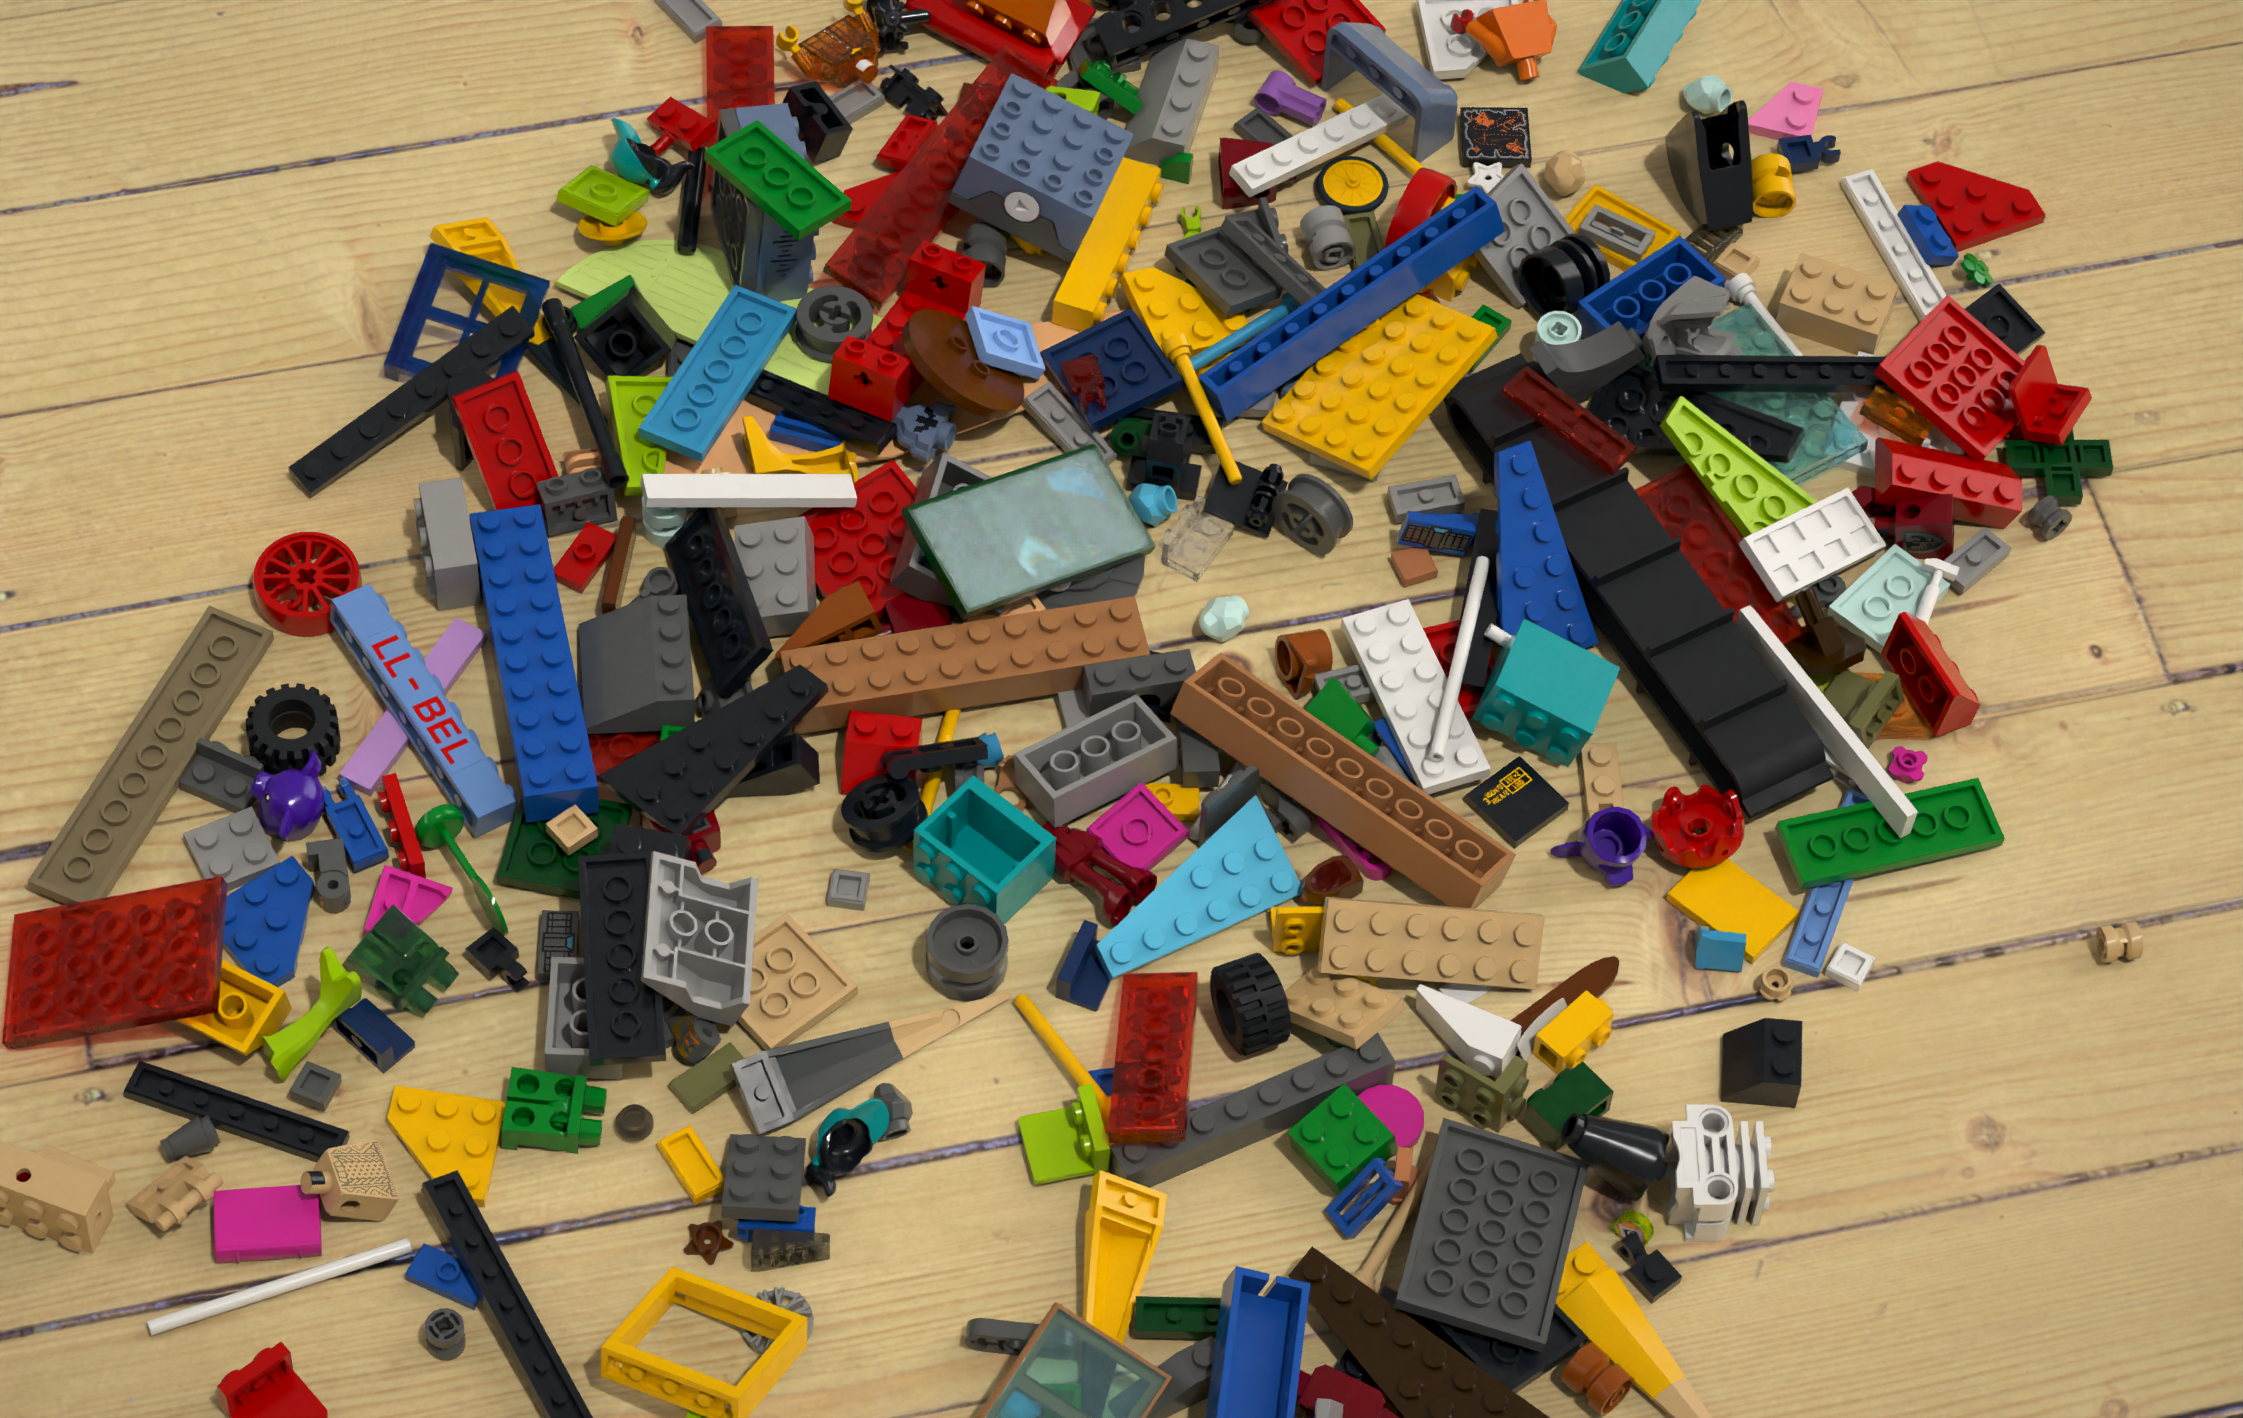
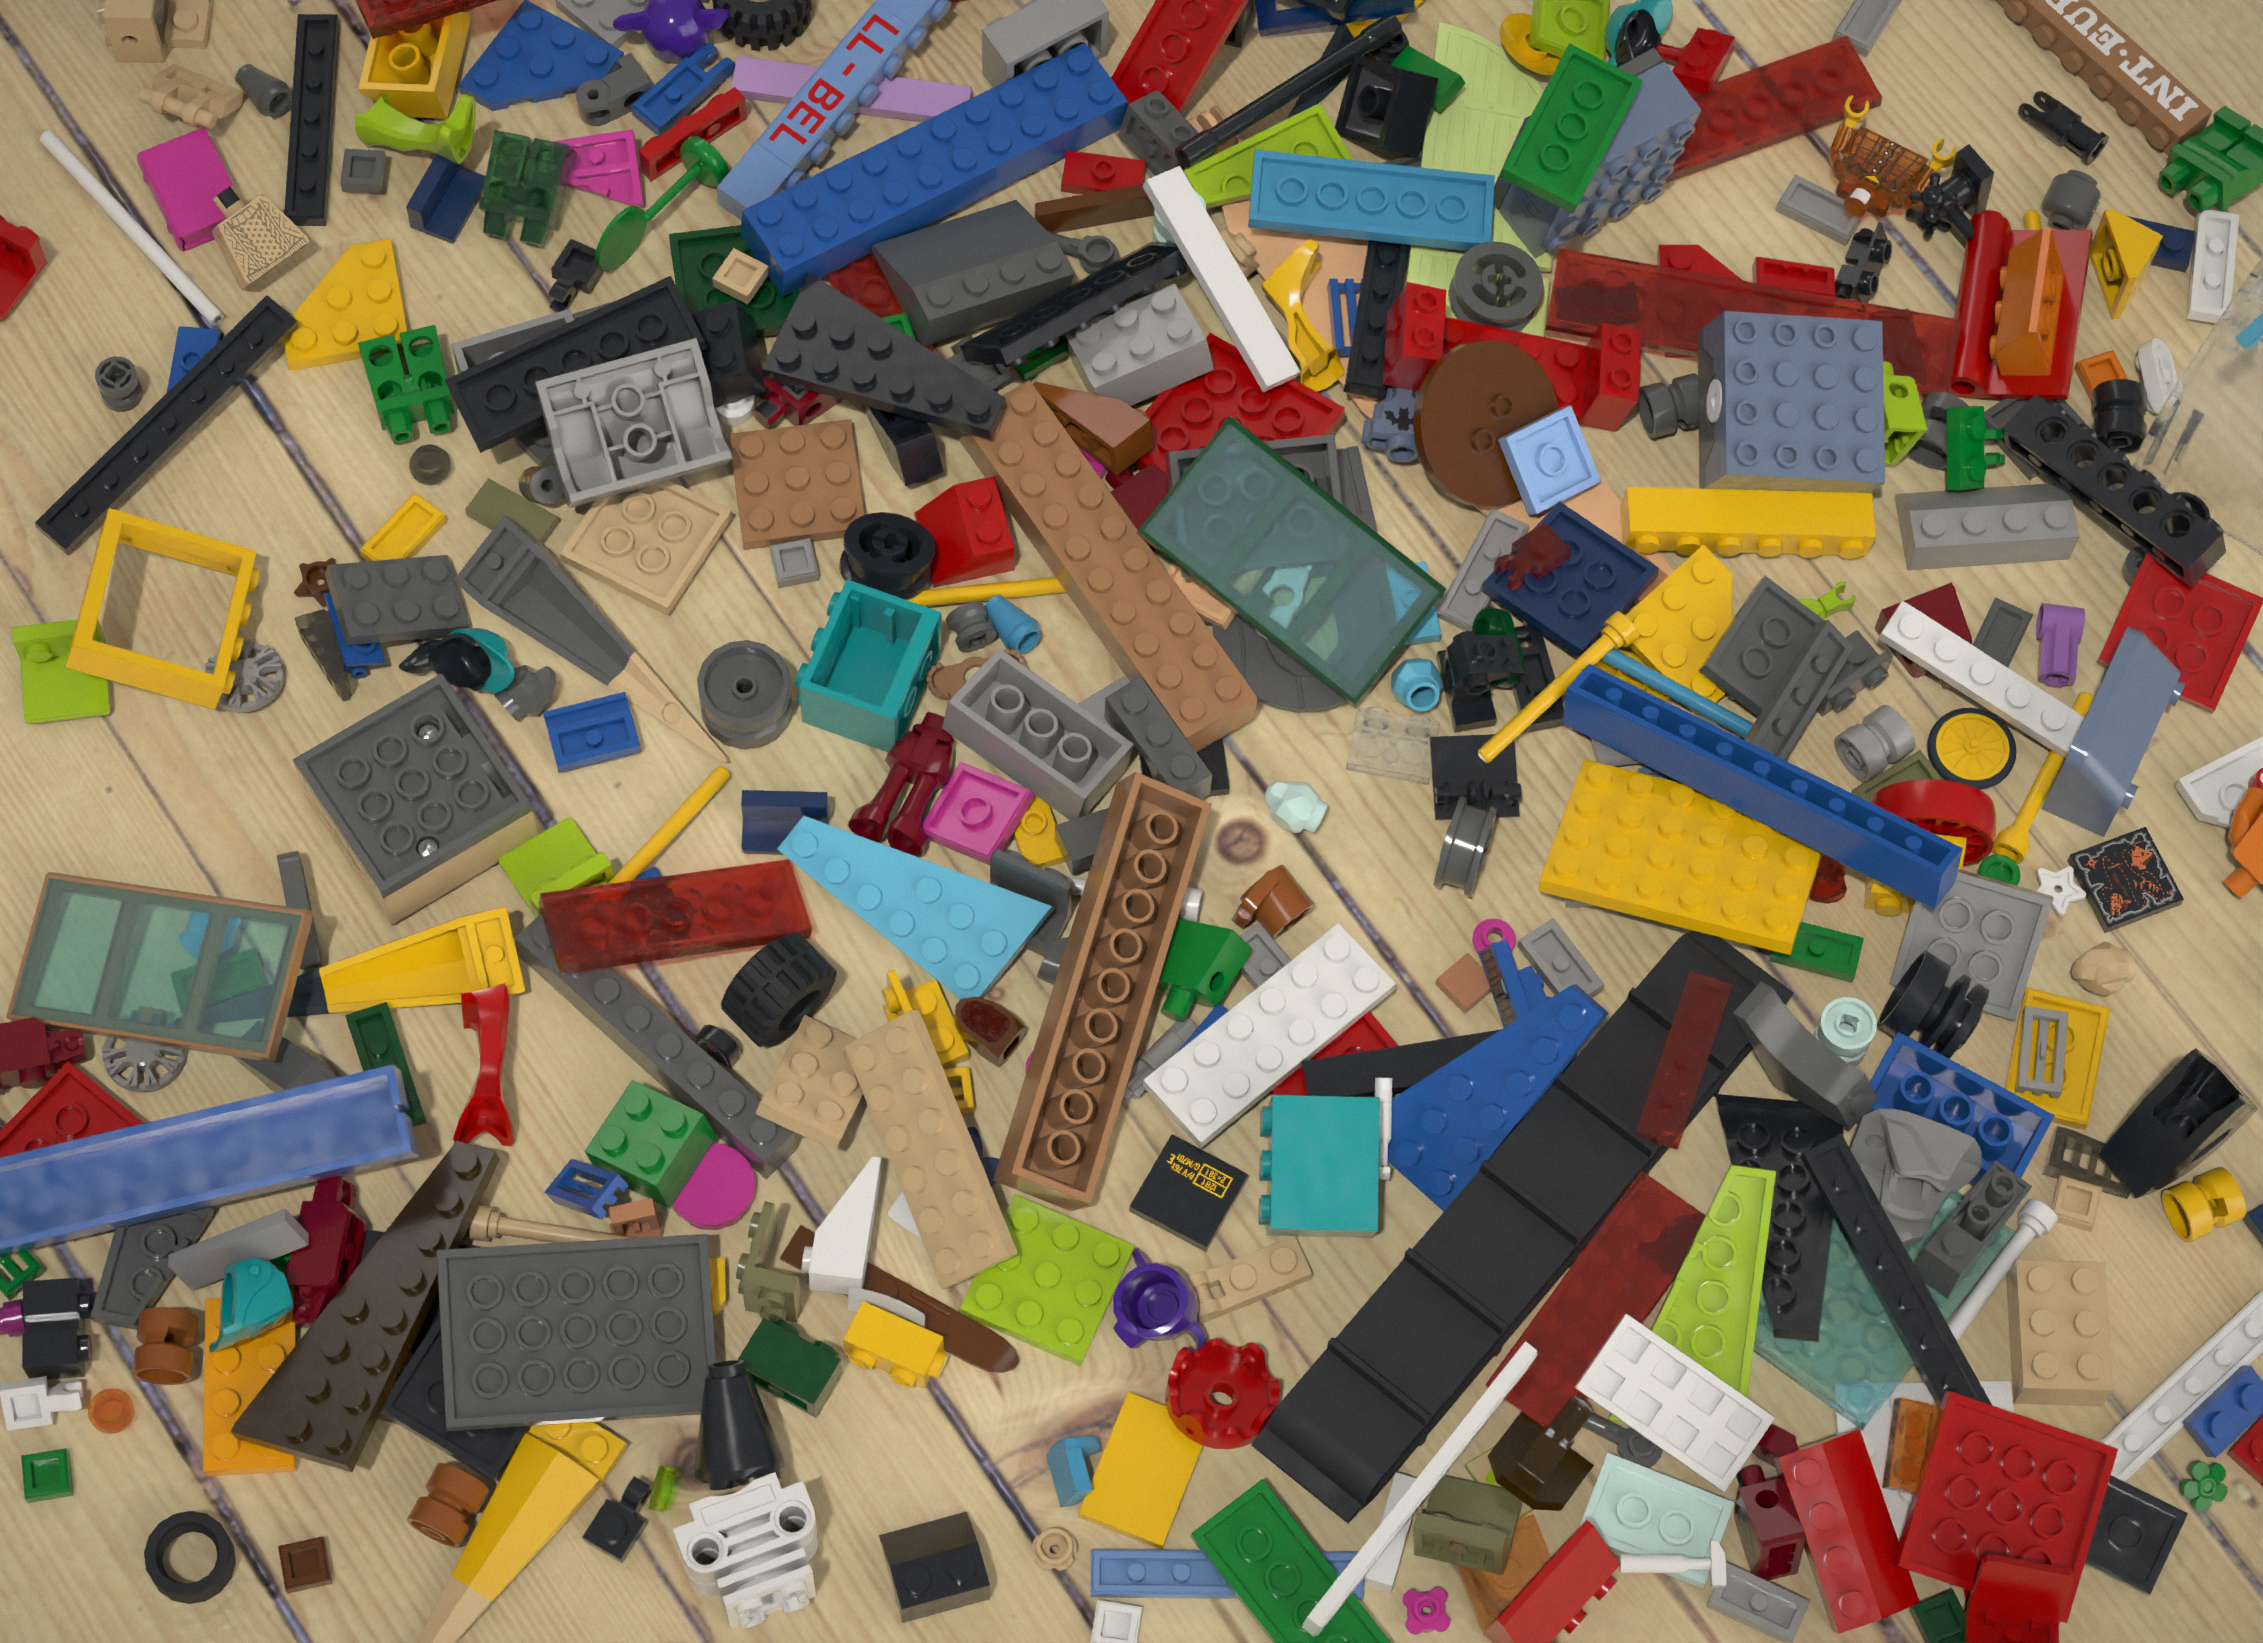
camera: 70 degrees right, 10 degrees up
(787, 857) = (796, 483): none -> medium nougat plate
(819, 121) = (1769, 178): black brick -> none
(933, 756) = (965, 573): black plate -> none
(946, 1078) = (592, 732): none -> blue plate
(969, 1210) = (416, 798): none -> dark grey piece
(1177, 168) = (1900, 560): green tile -> none
(1194, 1226) = (486, 1107): none -> red animal
(1266, 1069) = (718, 1045): none -> black tile
(1382, 541) = (1489, 926): none -> dark pink plate
(1459, 659) = (1326, 1060): white piece -> none
(1576, 914) = (1054, 1285): none -> lime plate
(1752, 318) = (1971, 1229): none -> dark grey slope

